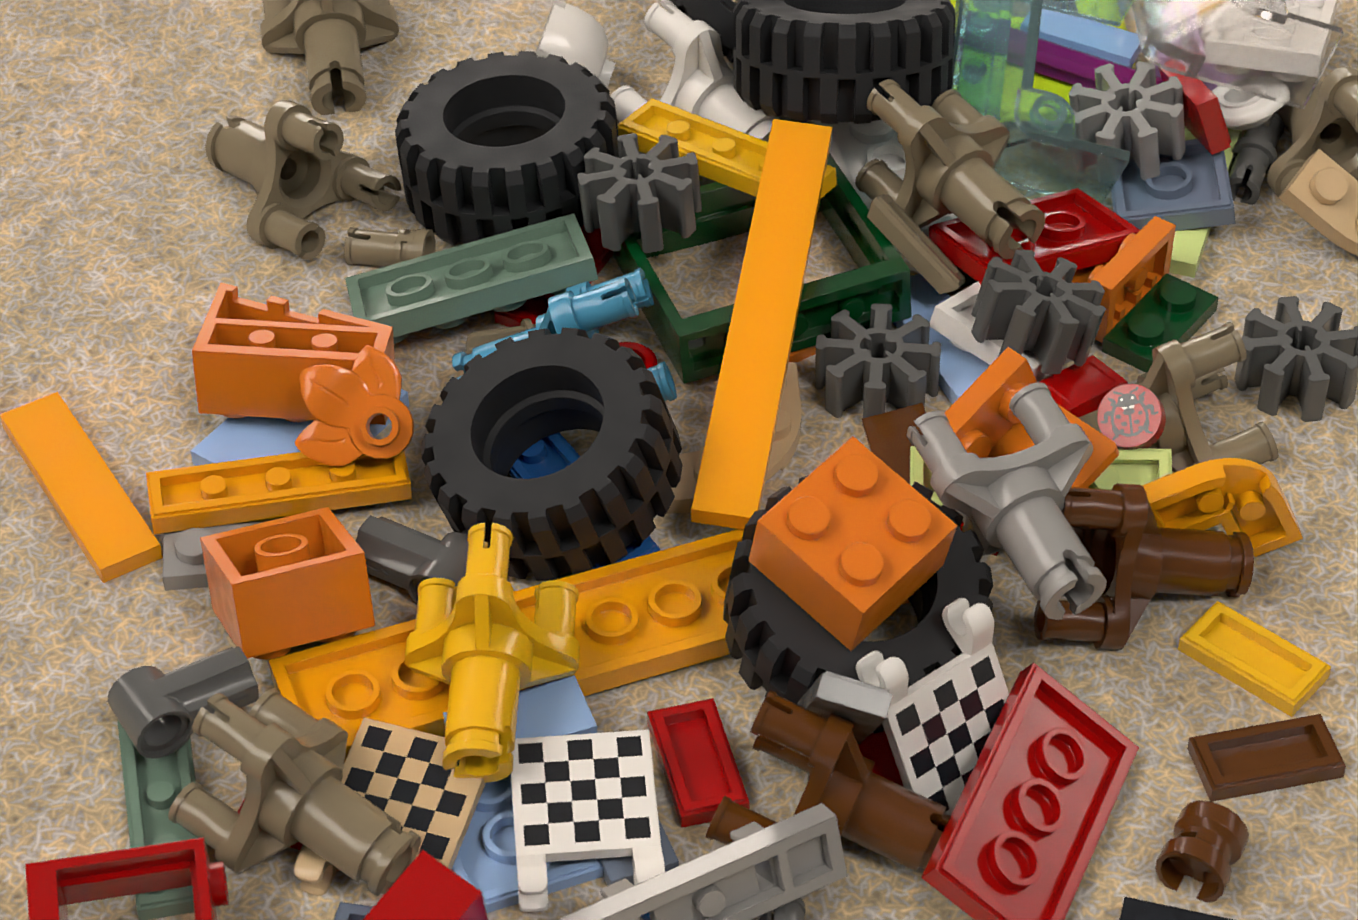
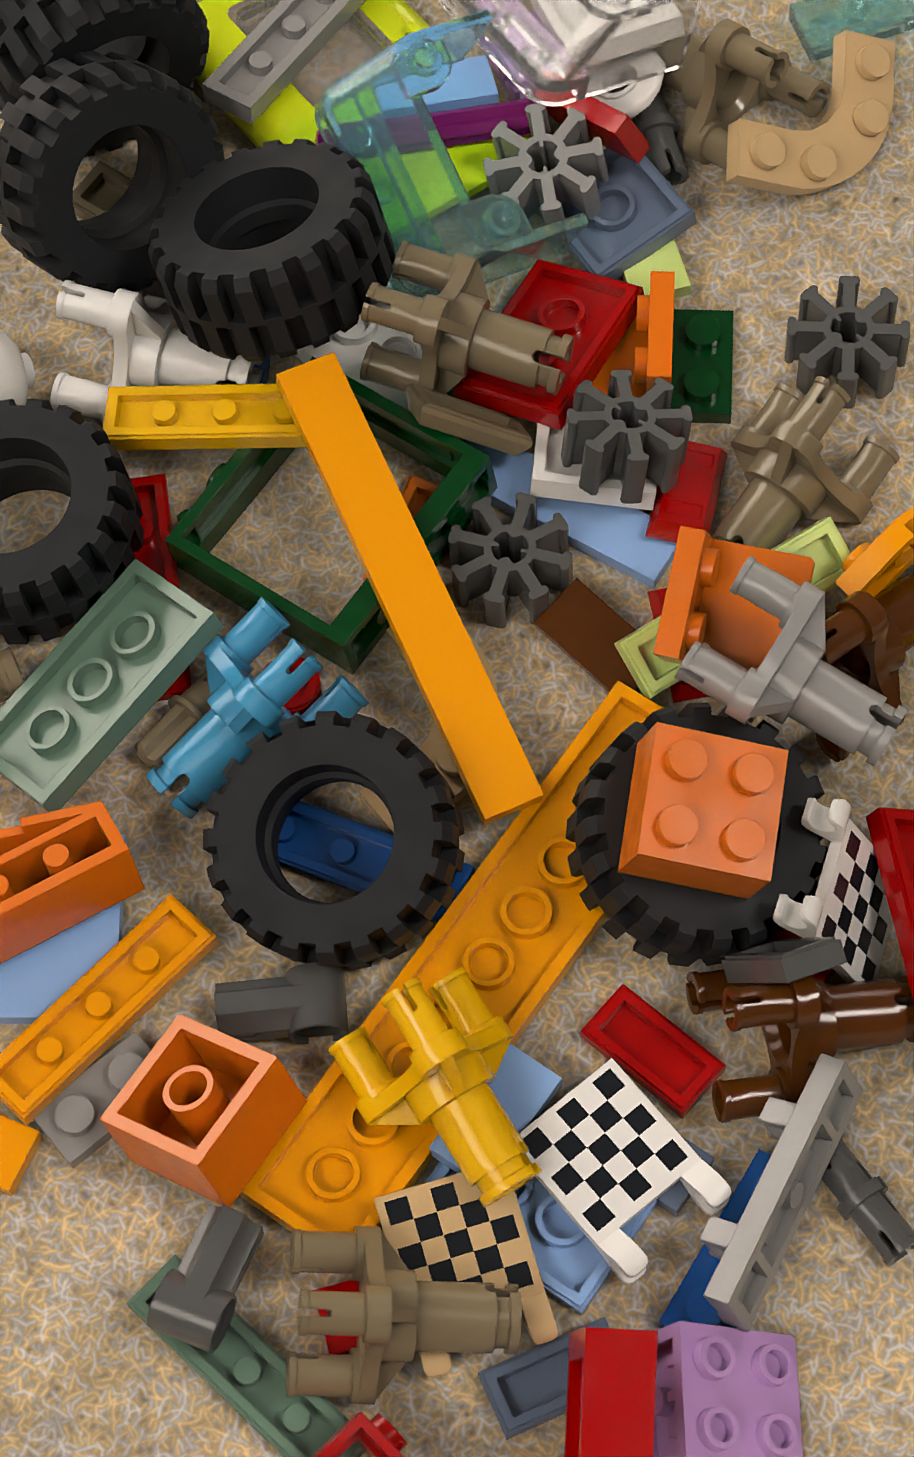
camera: 30 degrees left, 20 degrees up
(346, 405) = (124, 903): orange plate -> none
(640, 192) = (195, 511): dark grey gear -> none
(1131, 416) = (784, 508): tile -> none

